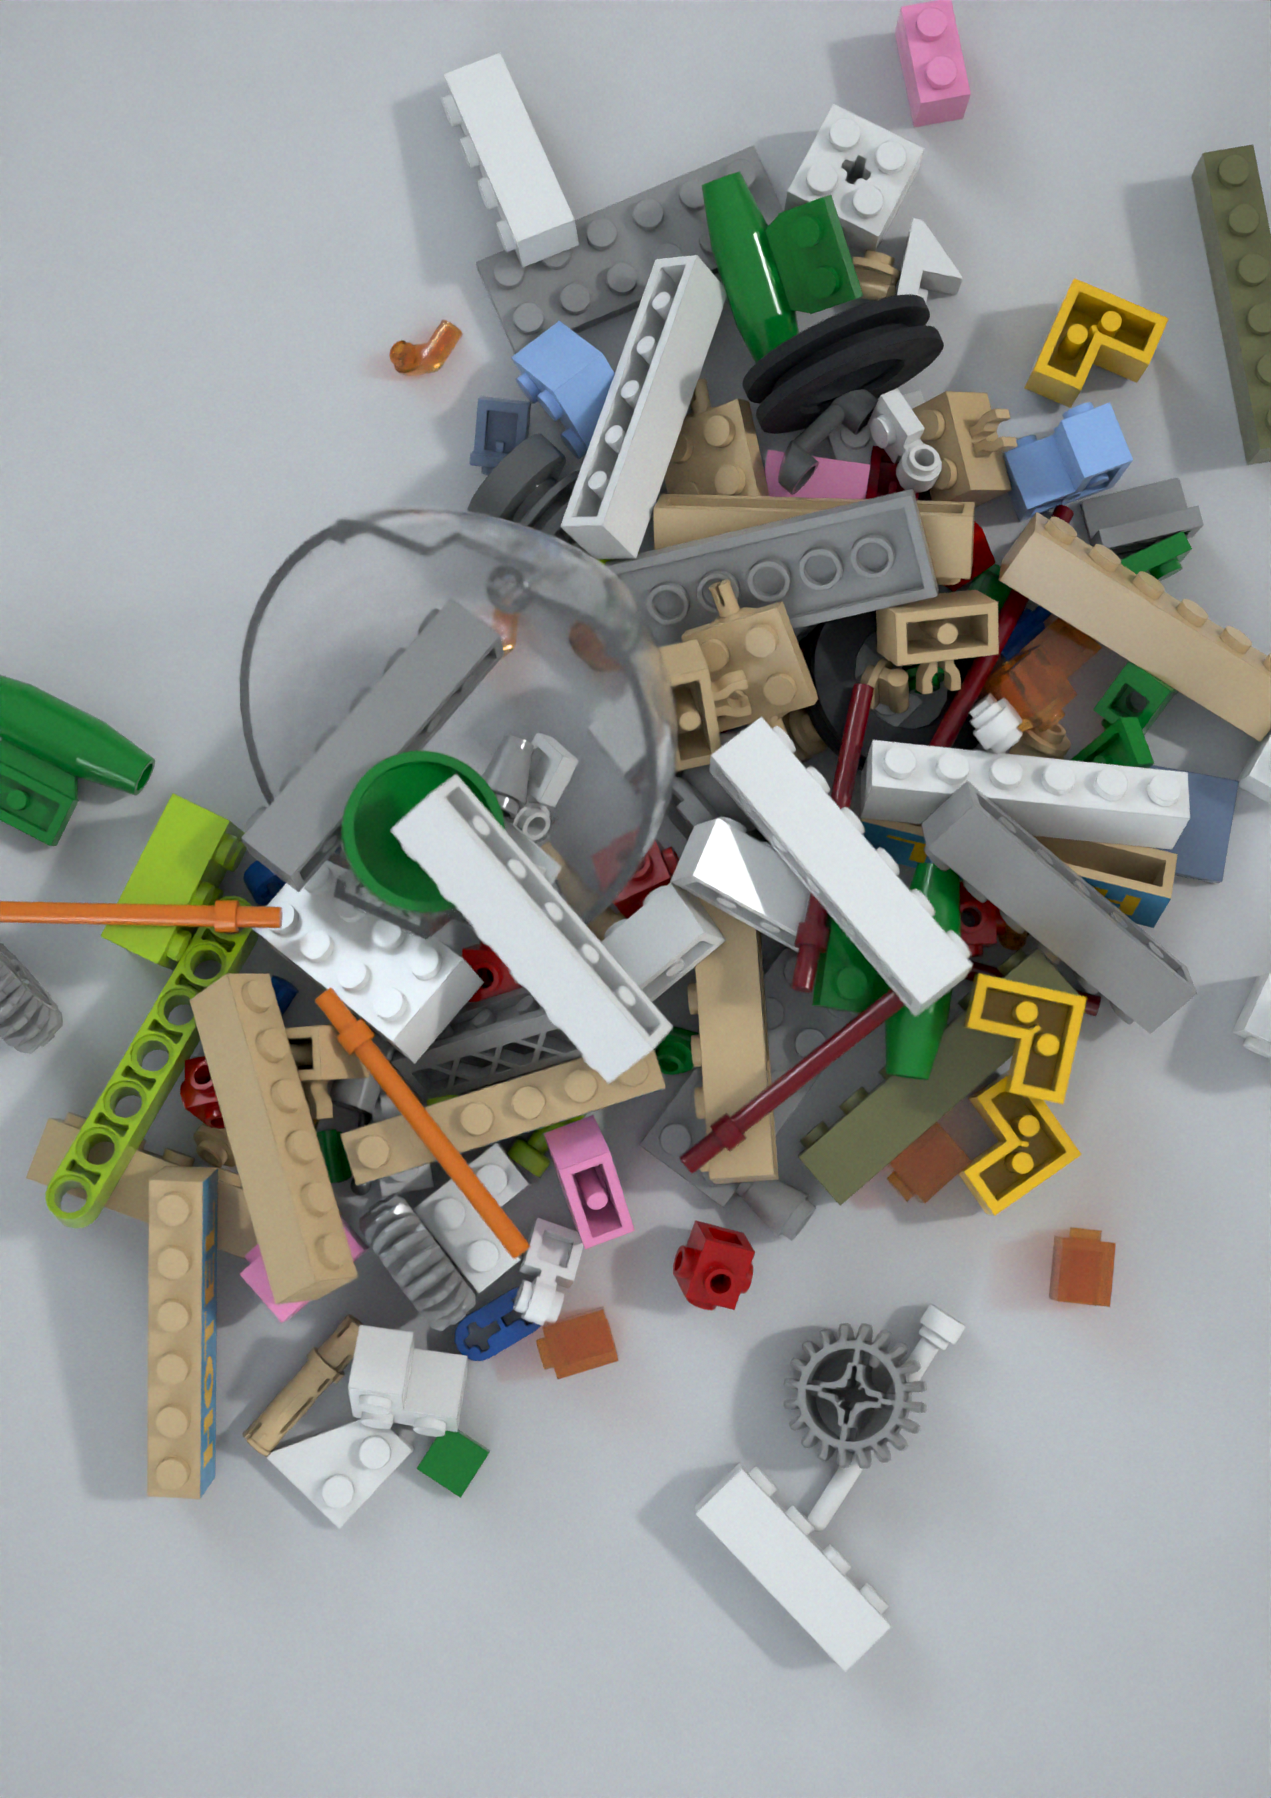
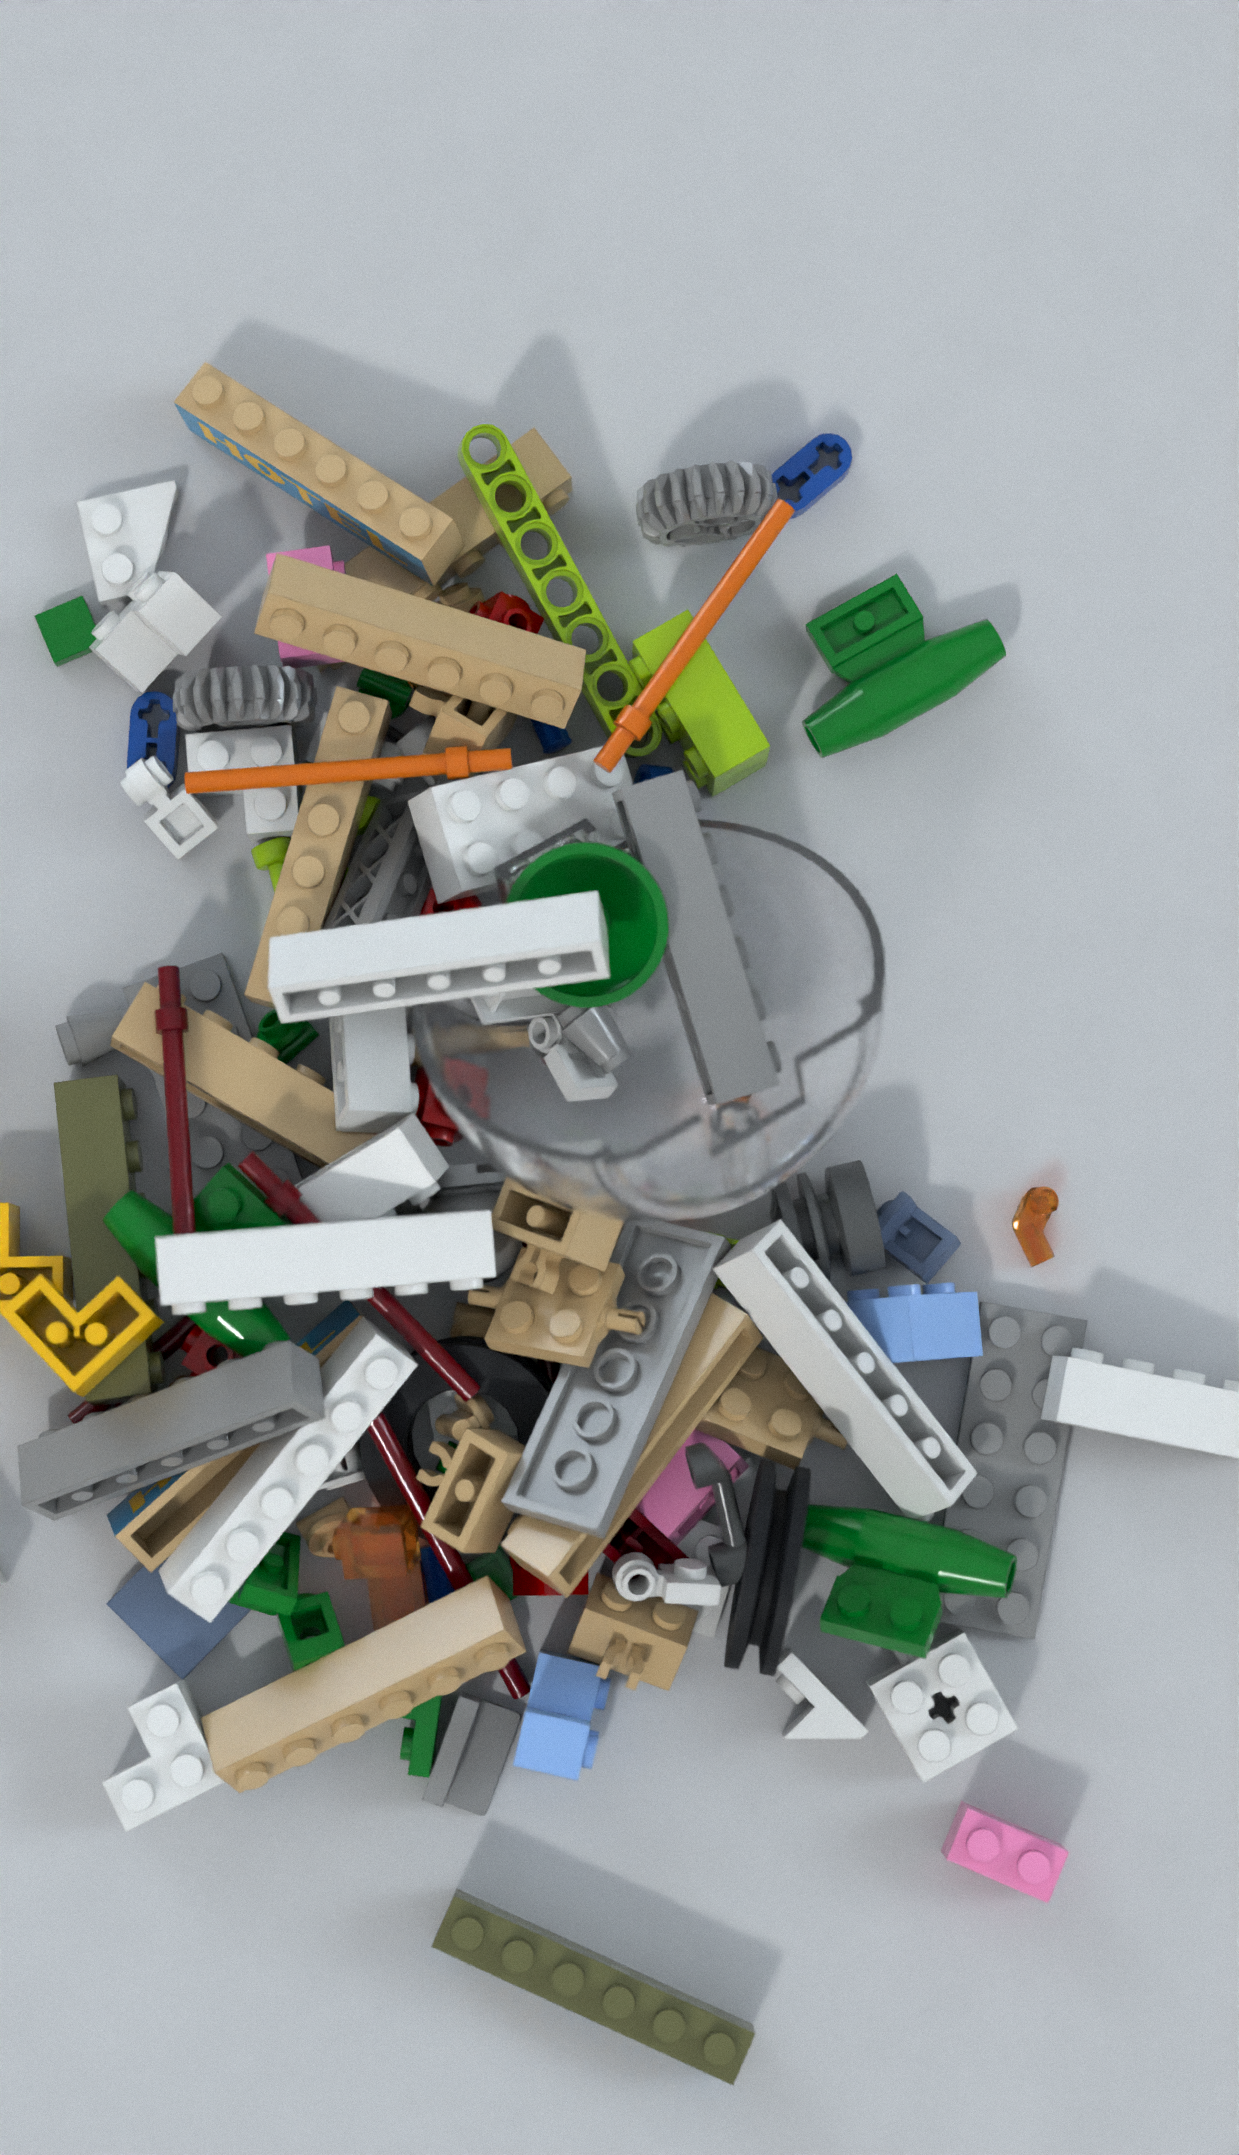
camera: 125 degrees right, 0 degrees up
(300, 1393) = (215, 570): tan pin -> none
(577, 1343) = (91, 793): clear orange brick -> none
(589, 1181) = (214, 885): bright pink brick -> none
(714, 1266) = (77, 946): red brick -> none
(876, 275) = (841, 1665): tan plate -> none
(926, 1165) = (37, 1182): clear orange brick -> none
(996, 723) = (363, 1485): white plate -> none
(1096, 331) = (665, 1820): yellow brick -> none

